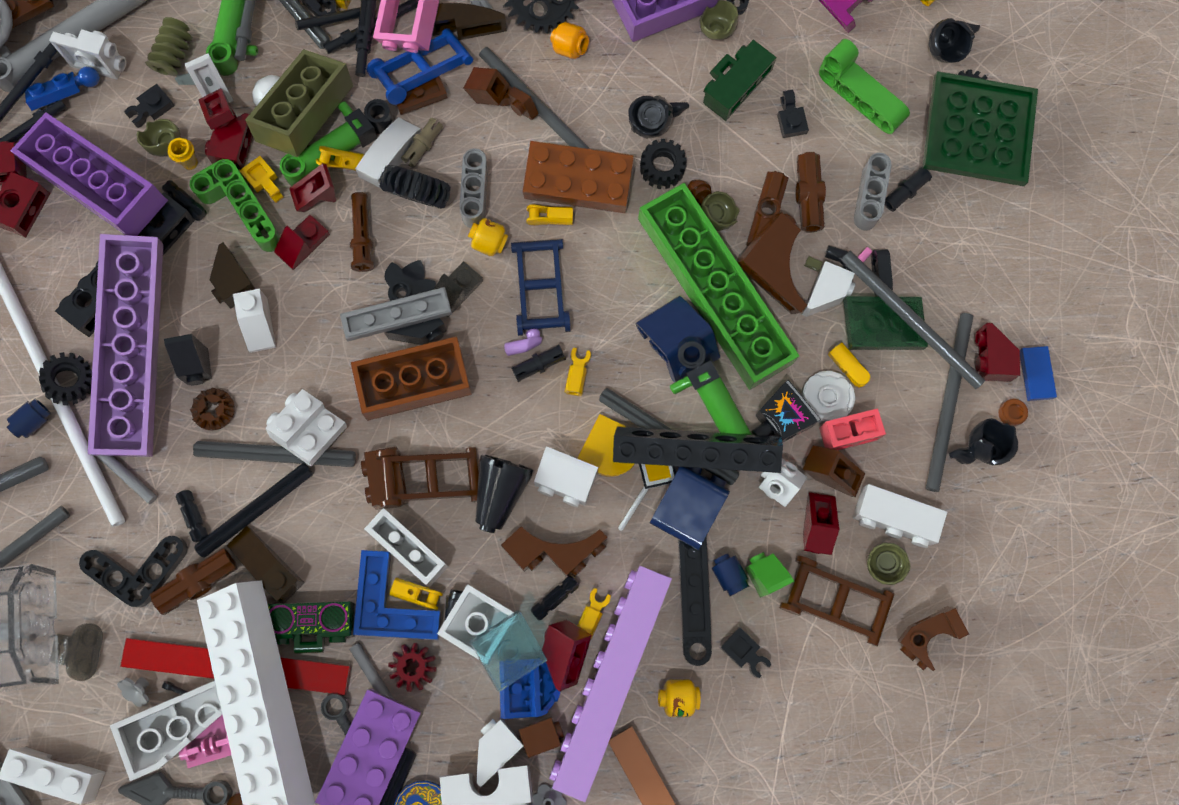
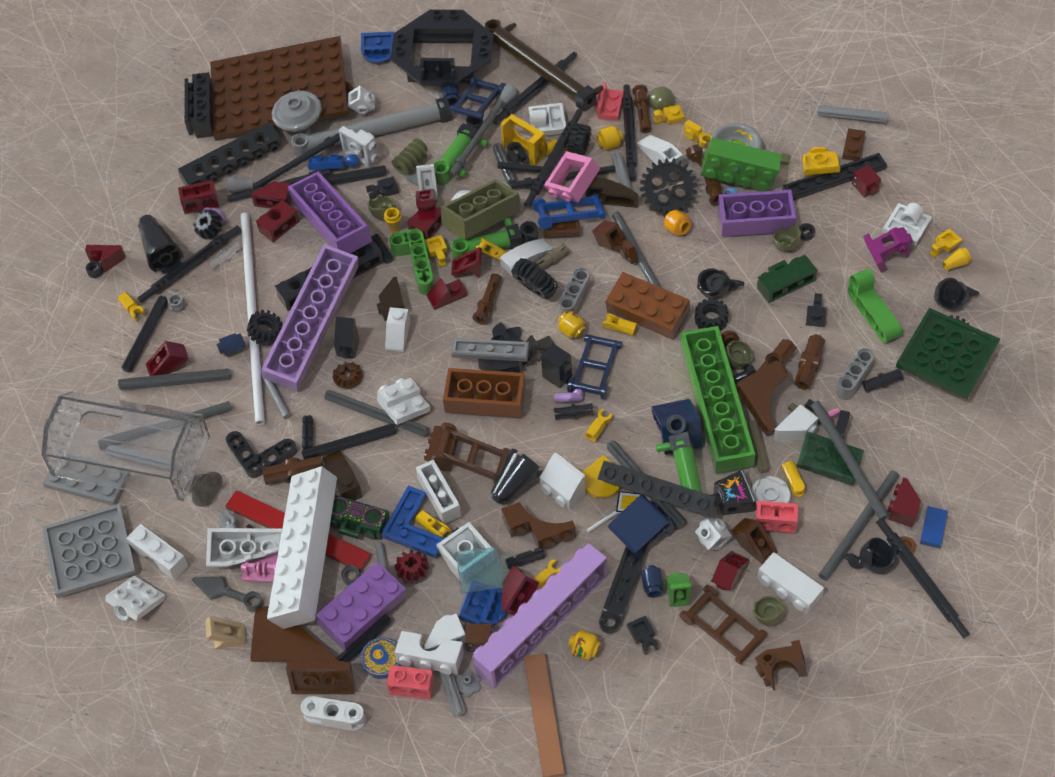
camera: 30 degrees right, 20 degrees down
(100, 98) = (356, 175): none -> black axle
(494, 308) = (556, 366): none -> black brick
(741, 232) = (748, 370): none -> black arm
(805, 359) = (760, 454): none -> dark tan axle
(1052, 450) = (923, 578): none -> black axle

